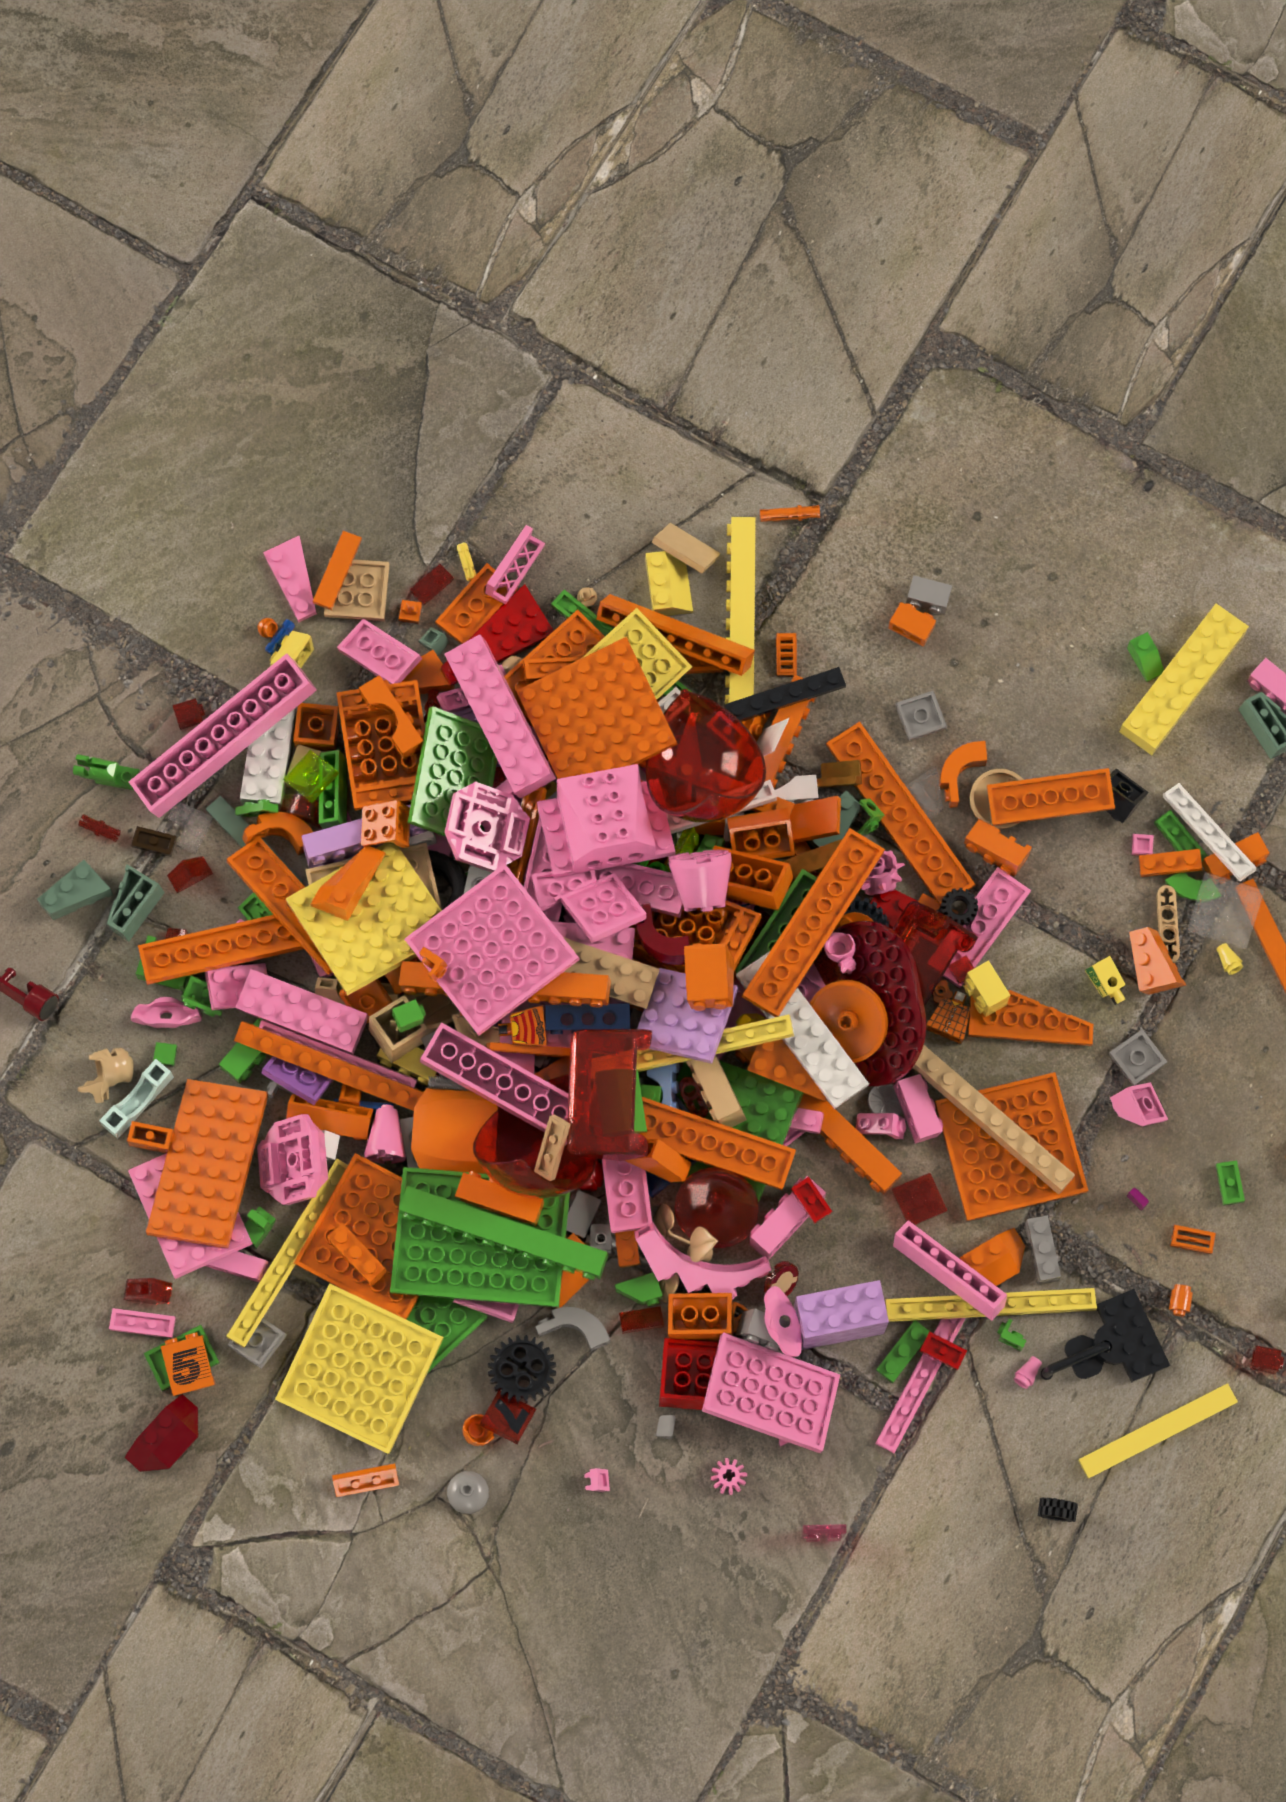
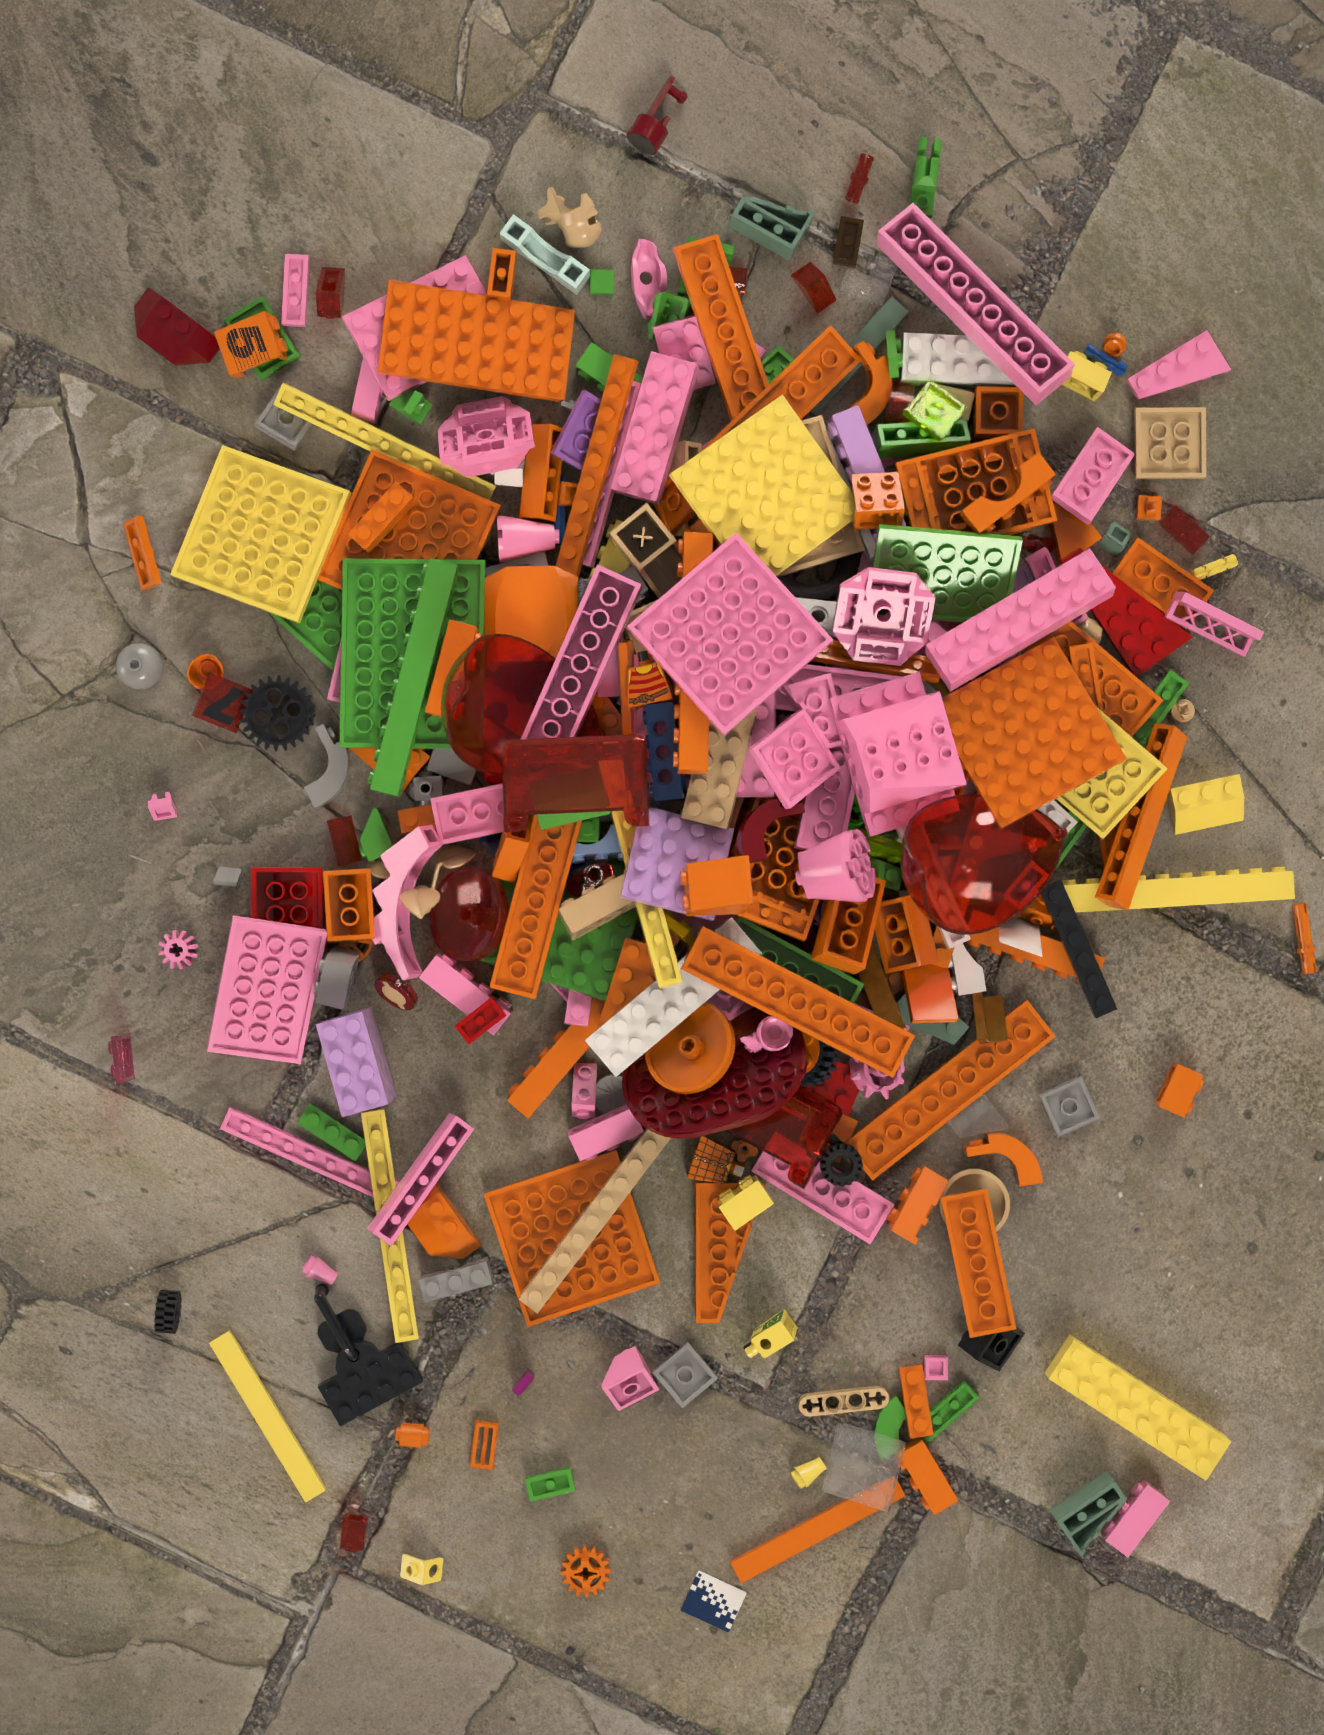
camera: 85 degrees right, 15 degrees up
(74, 891) = (781, 157): sand green wedge -> none
(188, 713) = (1003, 264): clear red brick -> none
(337, 570) = (1190, 417): orange tile -> none
(345, 888) = (798, 461): orange wedge -> none
(408, 1015) = (649, 547): bright green brick -> none
(430, 960) = (709, 566): orange bracket -> none
(552, 1147) = (510, 724): tan plate -> none
(686, 548) = (1250, 820): tan tile -> none
(776, 1306) = (356, 991): bright pink piece -> none
(786, 637) = (1151, 944): orange slope -> none
(873, 821) = (942, 1061): bright green bracket -> none
(919, 1199) = (502, 1139): clear red plate -> none
(929, 595) = (1216, 1106): light grey brick -> none
(943, 1350) = (333, 1176): red plate -> none
(960, 968) = (768, 1172): clear red plate -> none
(1012, 1338) = (355, 1253): bright green bracket -> none
(1146, 656) = (1161, 1362): bright green slope -> none
(1152, 962) = (795, 1387): orange wedge -> none
(1209, 832) = (954, 1445): white tile -> none

